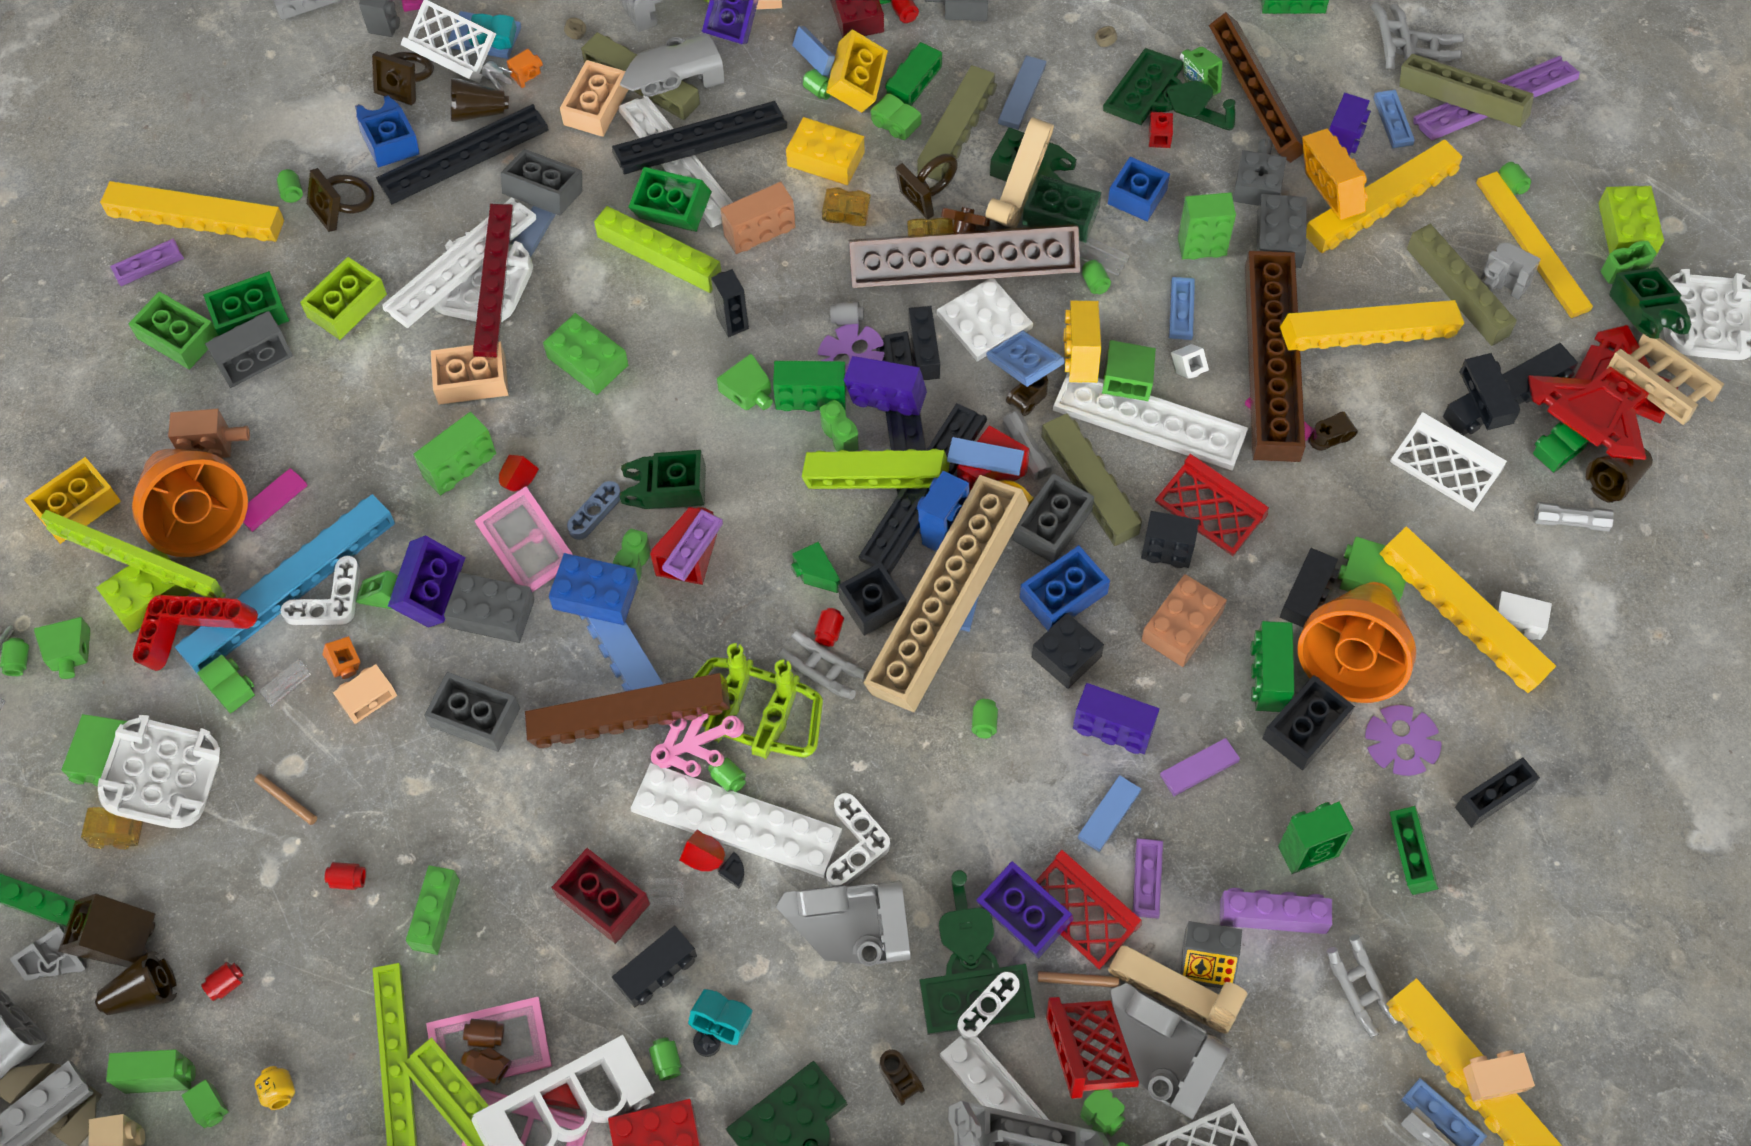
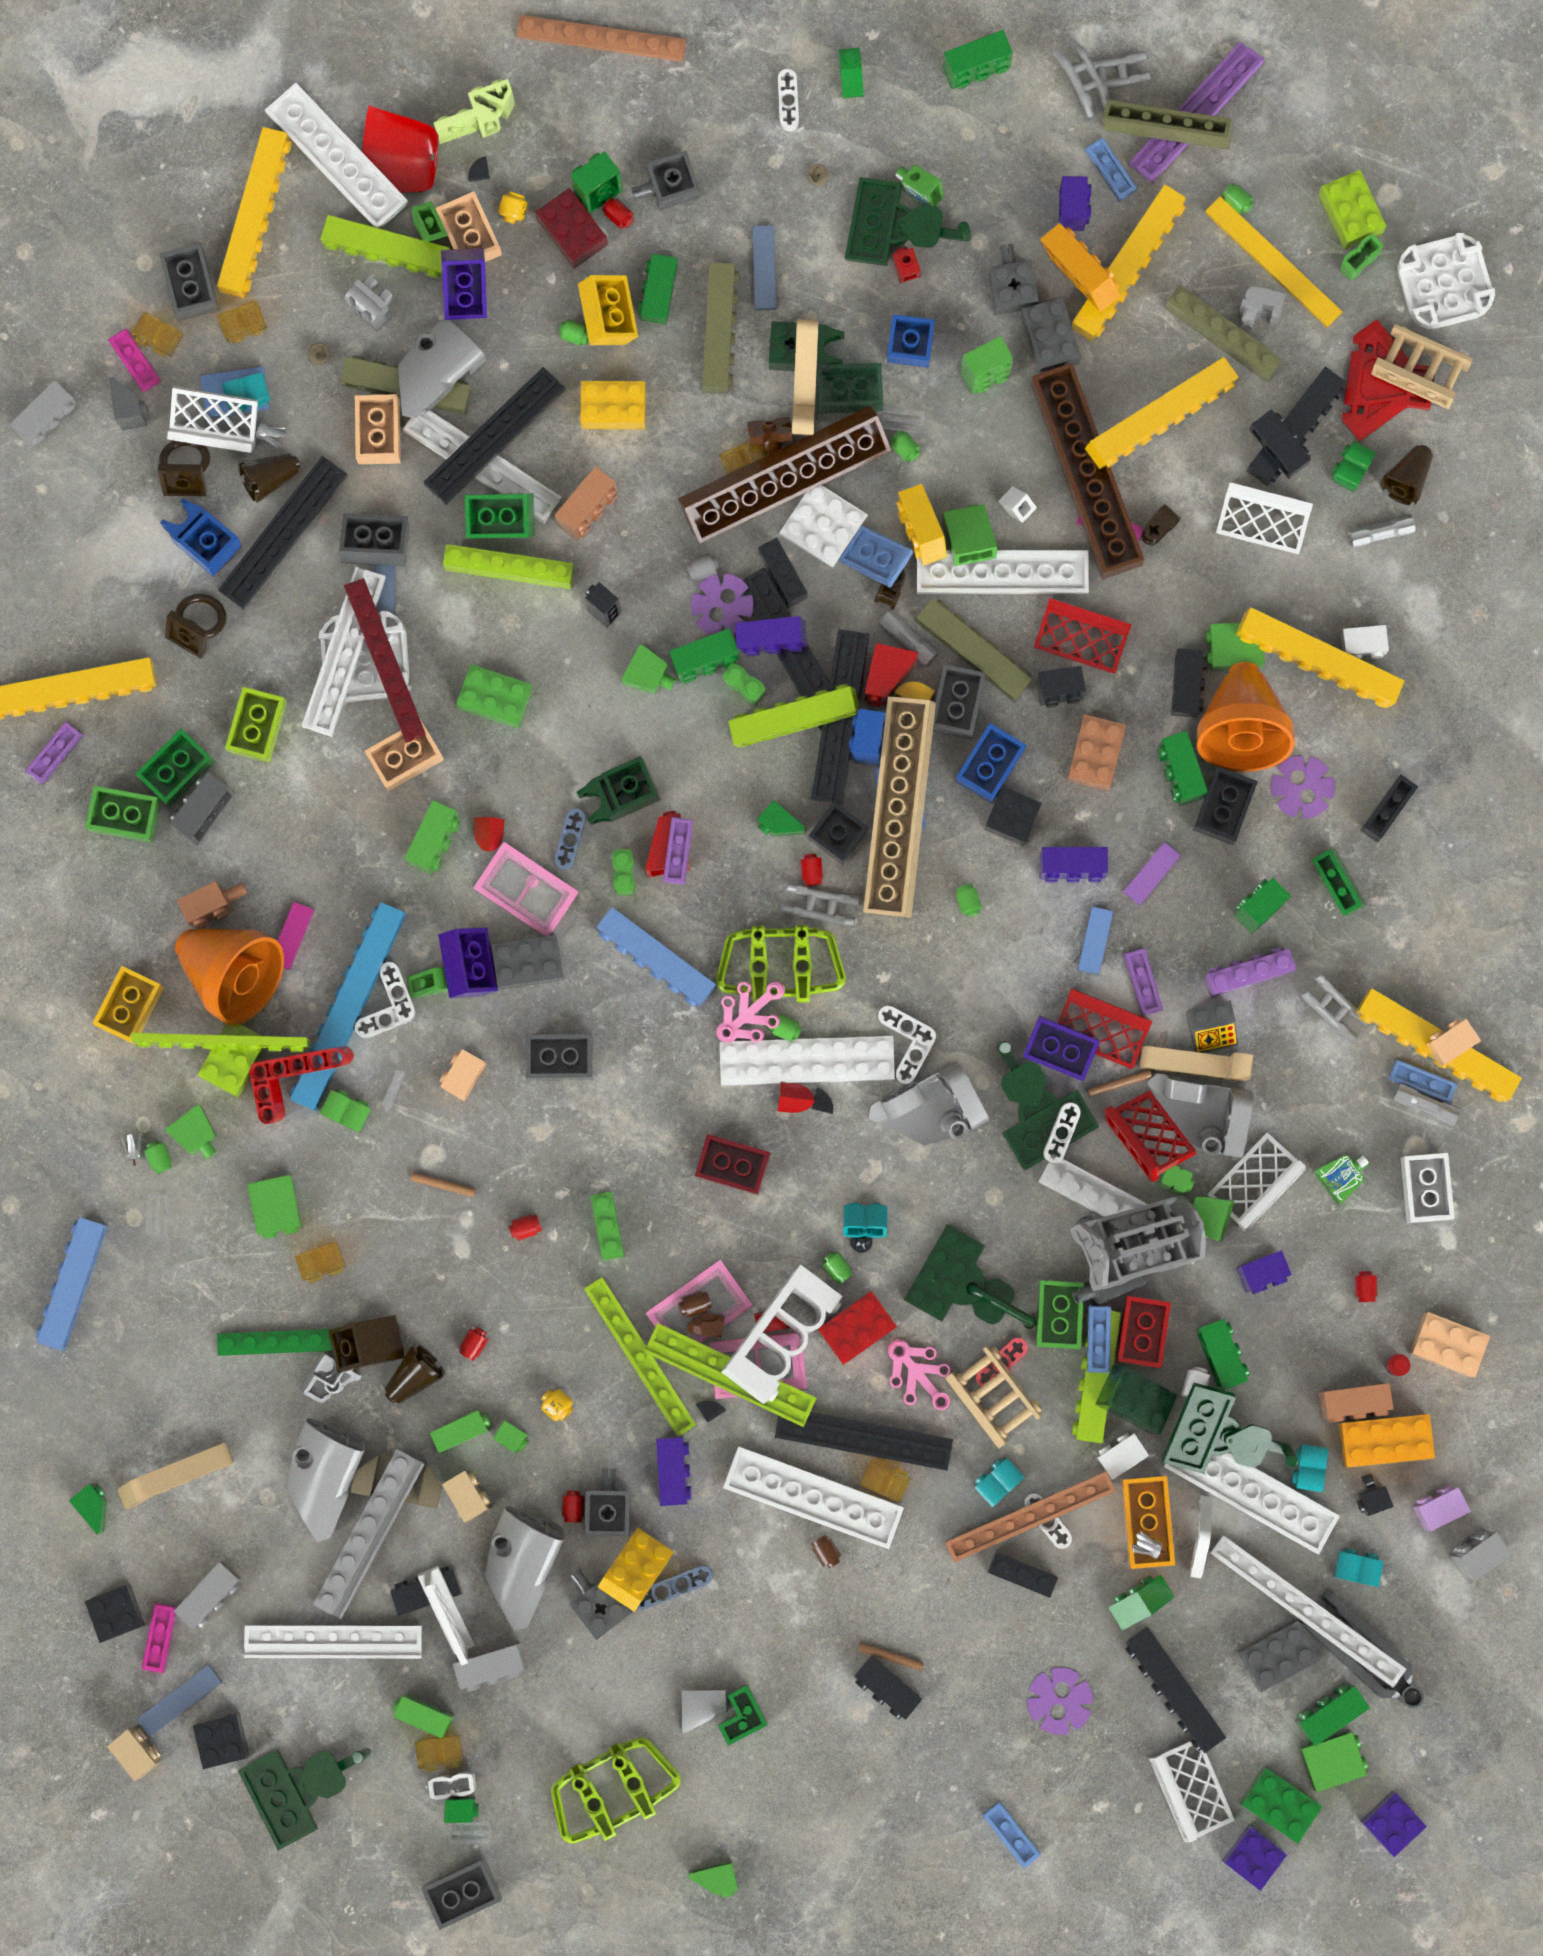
camera: 20 degrees left, 20 degrees up
(159, 773) = (336, 1205): white tile -> none
(289, 186) = (142, 627): bright green brick -> none
(341, 651) = (429, 1045): orange brick -> none
(524, 67) = (294, 417): orange brick -> none
(593, 589) = (611, 918): blue brick -> none
(627, 710) = (686, 1010): reddish brown brick -> none
(655, 967) = (798, 1202): black brick -> none
(813, 51) = (556, 300): medium blue tile -> none
(846, 206) = (656, 456): clear yellow brick -> none
(896, 117) = (660, 342): bright green brick -> none
(903, 1080) = (1017, 1212): dark brown piece -> none
(916, 188) = (717, 416): dark brown tile -> none
(985, 456) = (885, 675): medium blue tile -> none
(1182, 308) = (990, 447): medium blue tile -> none
(1258, 87) = (978, 185): reddish brown brick -> none
(1596, 409) = (1372, 425): red plate -> none
(1650, 301) = (1390, 296): dark green brick -> none

